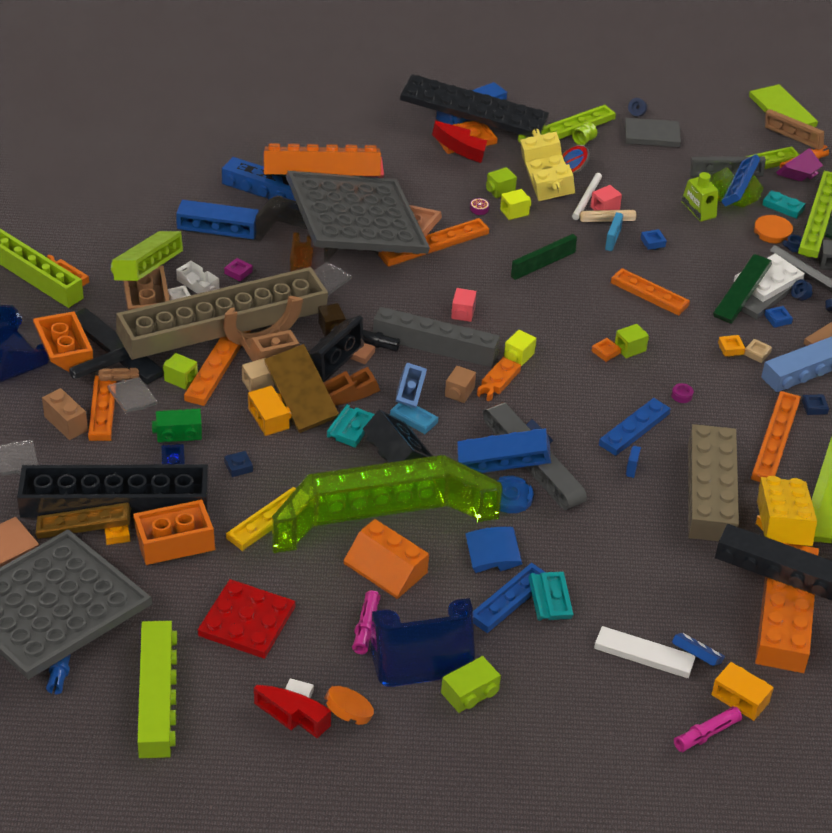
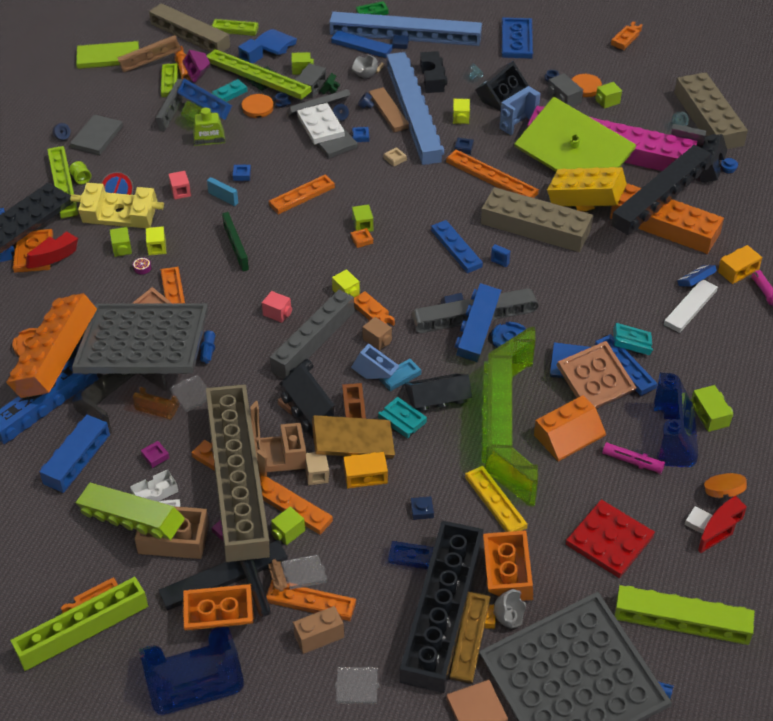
camera: 70 degrees left, 5 degrees up
(120, 542) = (510, 609): none -> light grey hair
(177, 425) = (368, 535): green brick -> none
(329, 317) = (264, 396): dark brown brick -> none
(387, 271) = (207, 346): none -> blue axle
(472, 567) = (596, 375): none -> nougat plate
(587, 195) = (164, 197): white bar -> none
(606, 215) = (196, 191): tan axle -> none
(682, 393) = (427, 210): magenta tile -> none
(731, 345) = (387, 167): light orange plate -> none
(742, 288) = (333, 138): dark green tile -> none

